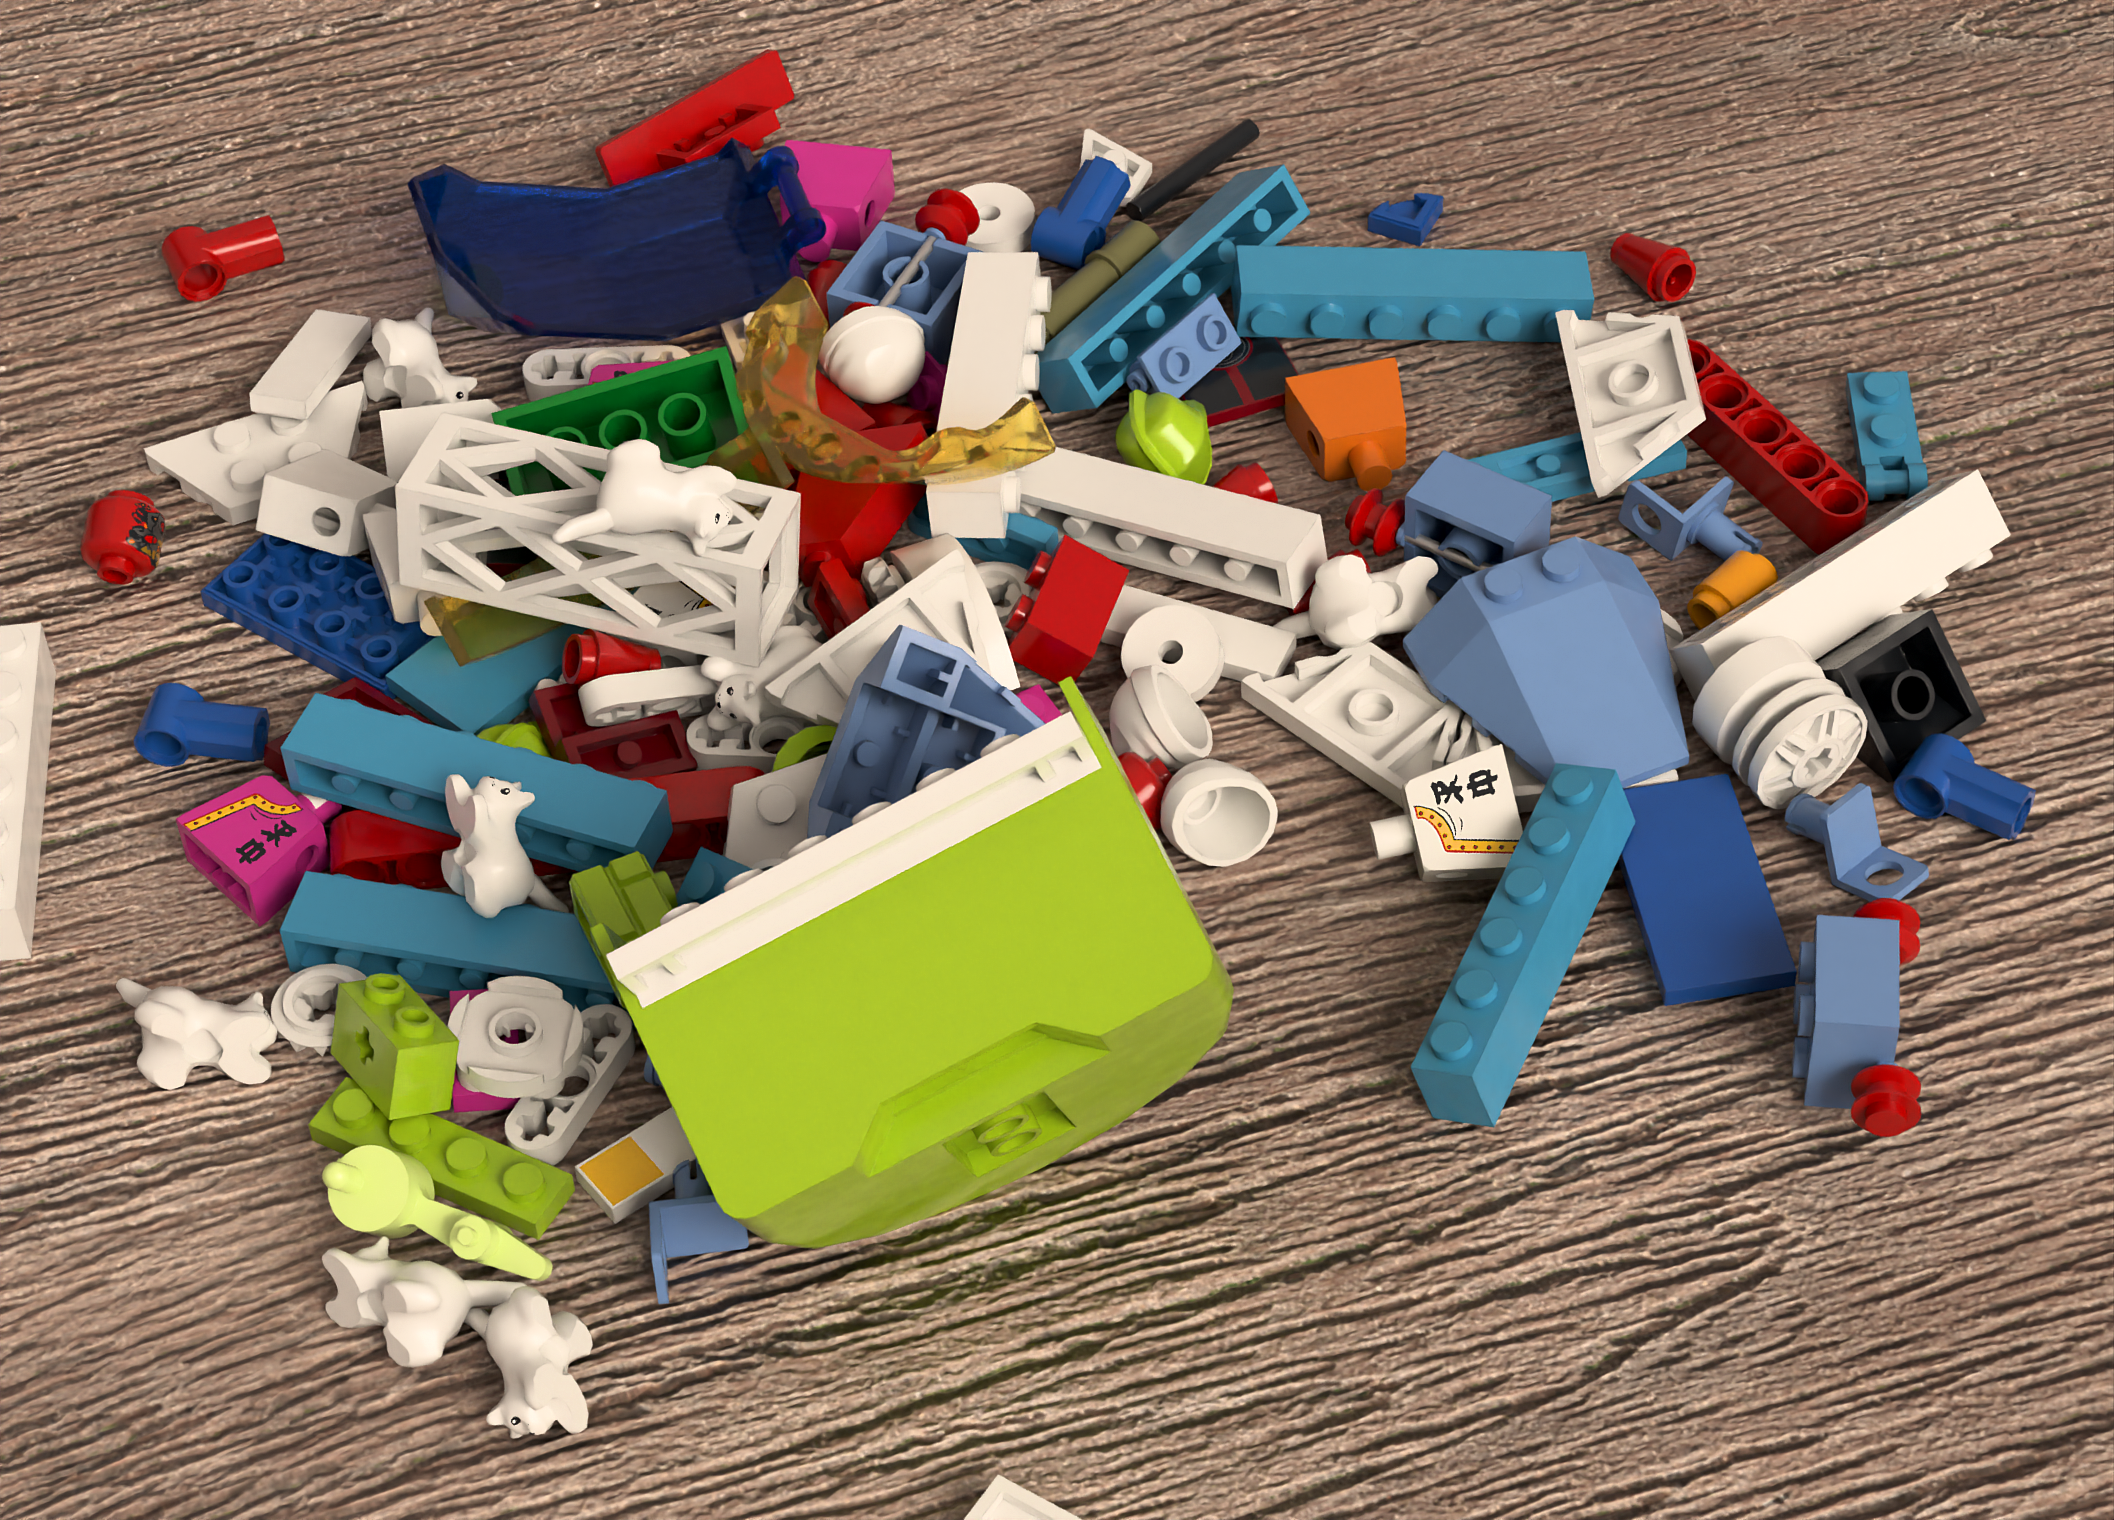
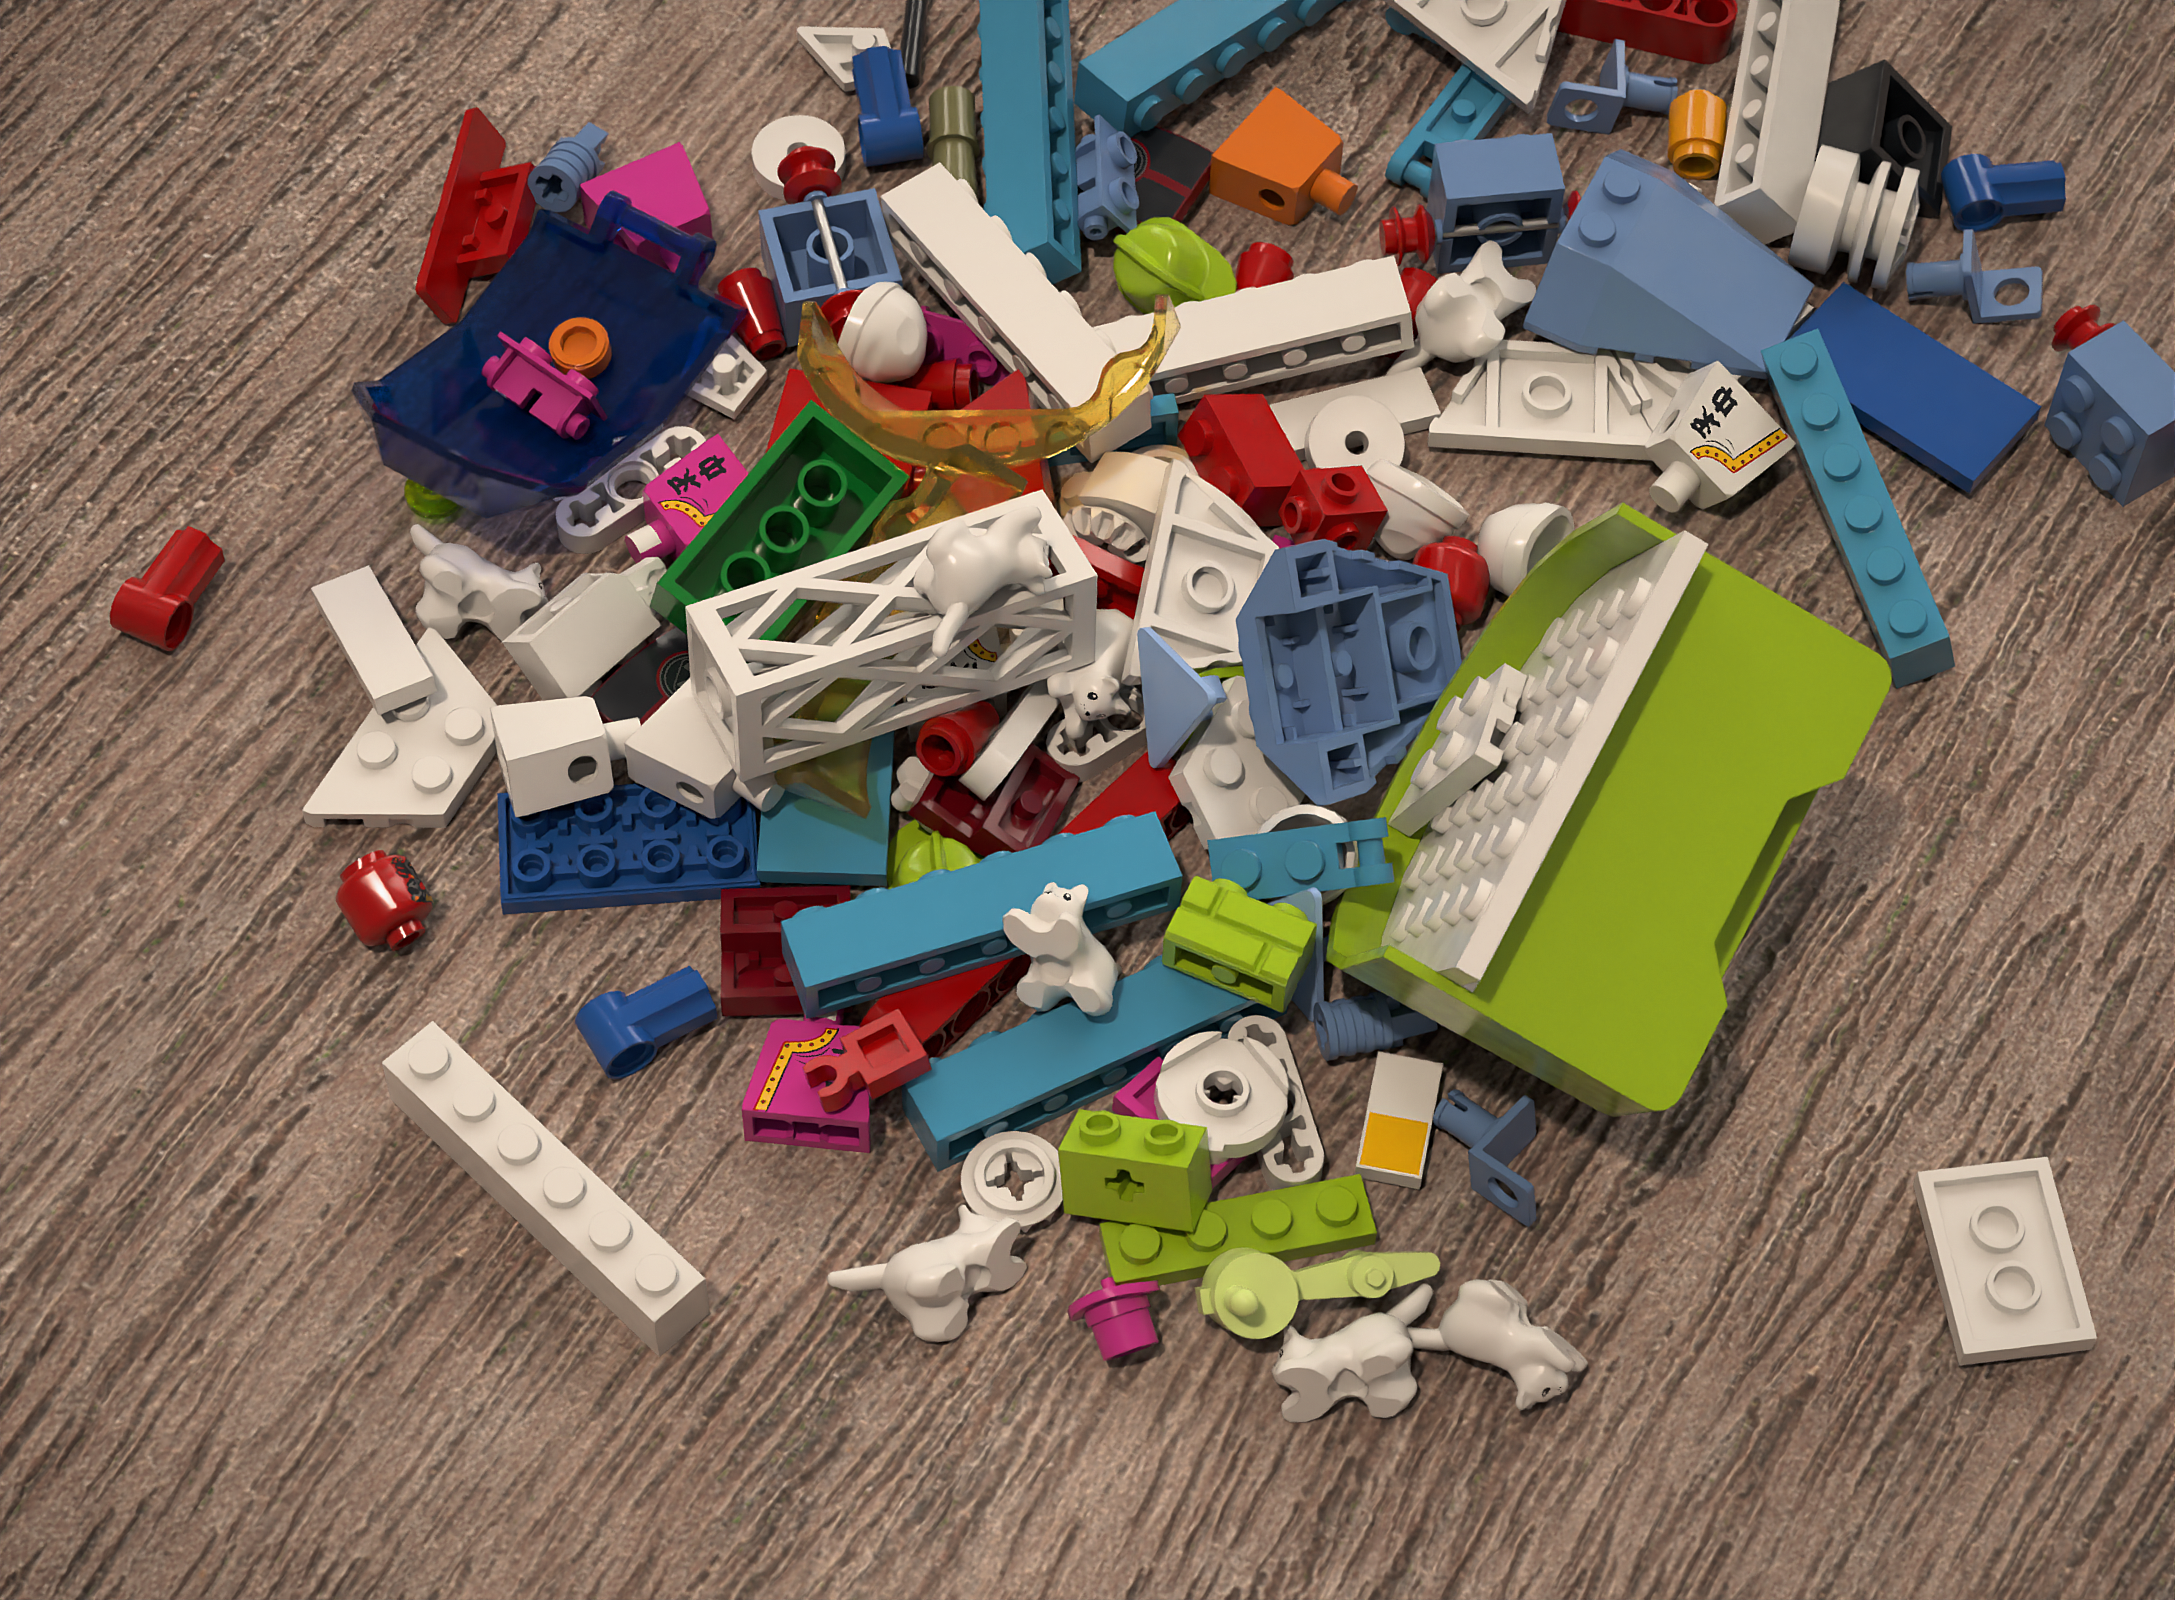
camera: 45 degrees left, 10 degrees up
(276, 1145) = (1118, 1317): none -> dark pink piece
(292, 841) = (874, 1057): none -> red plate
(613, 274) = (563, 399): none -> dark pink hinge
(670, 255) = (580, 346): none -> orange tile
(785, 731) = (1172, 697): none -> light blue piece
(805, 123) = (566, 167): none -> medium blue hinge
(1091, 664) = (1333, 506): none -> red brick

